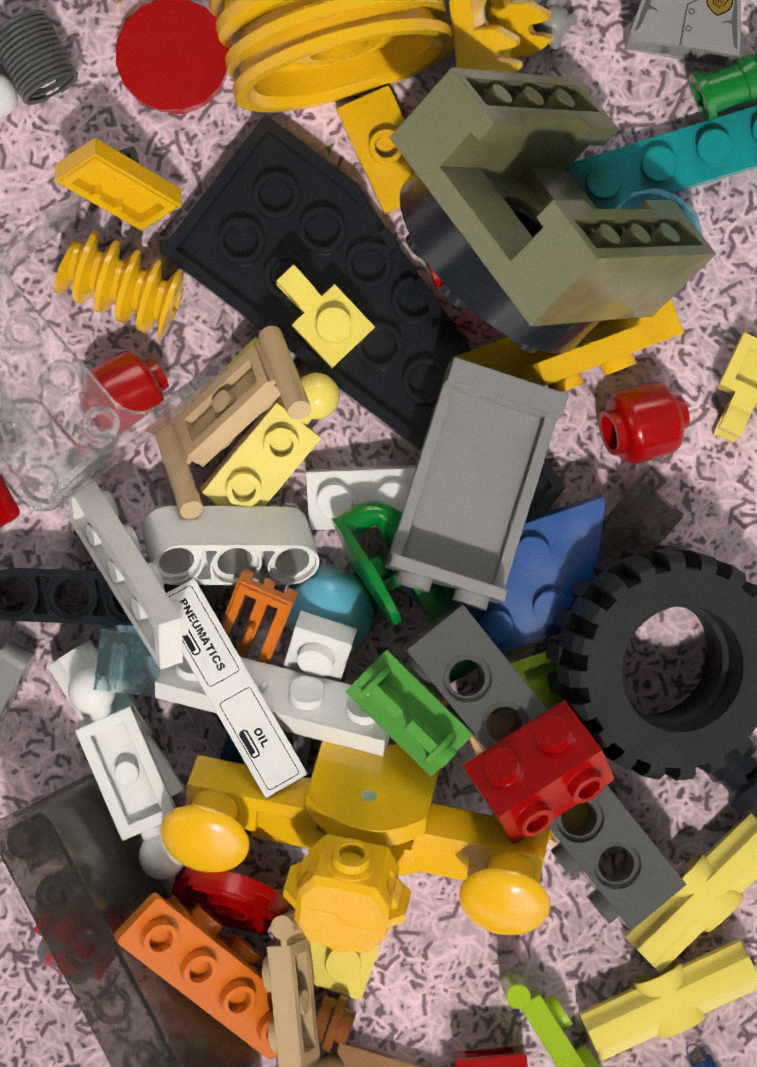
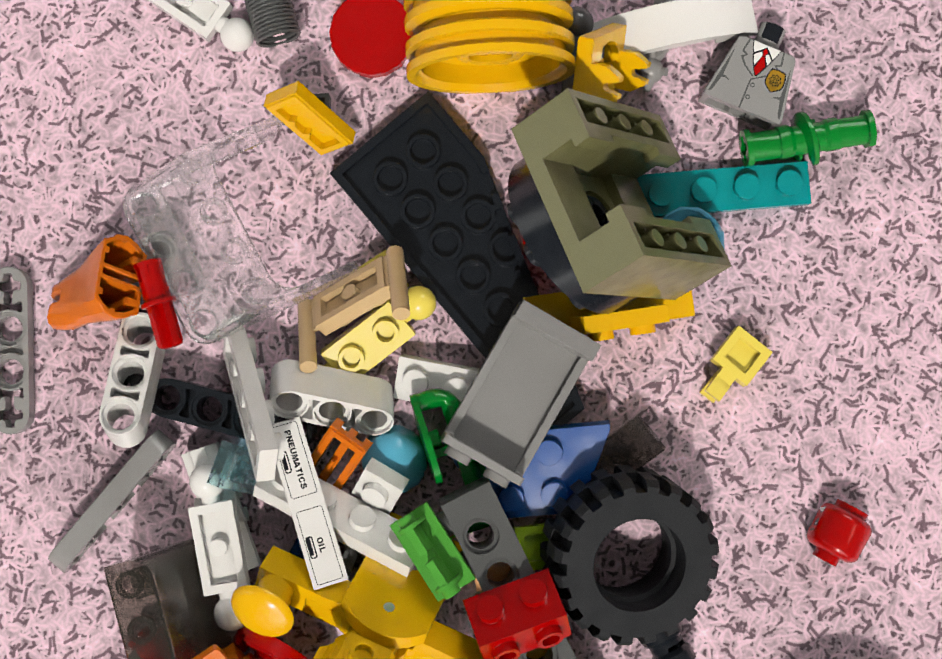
camera: 15 degrees right, 0 degrees up
(120, 283) = (296, 190): yellow piece -> none
(132, 381) = (287, 263): red head -> none
(328, 321) = (440, 251): light yellow plate -> none
(368, 126) = (500, 115): yellow plate -> none
(643, 422) = (651, 374): red head -> none

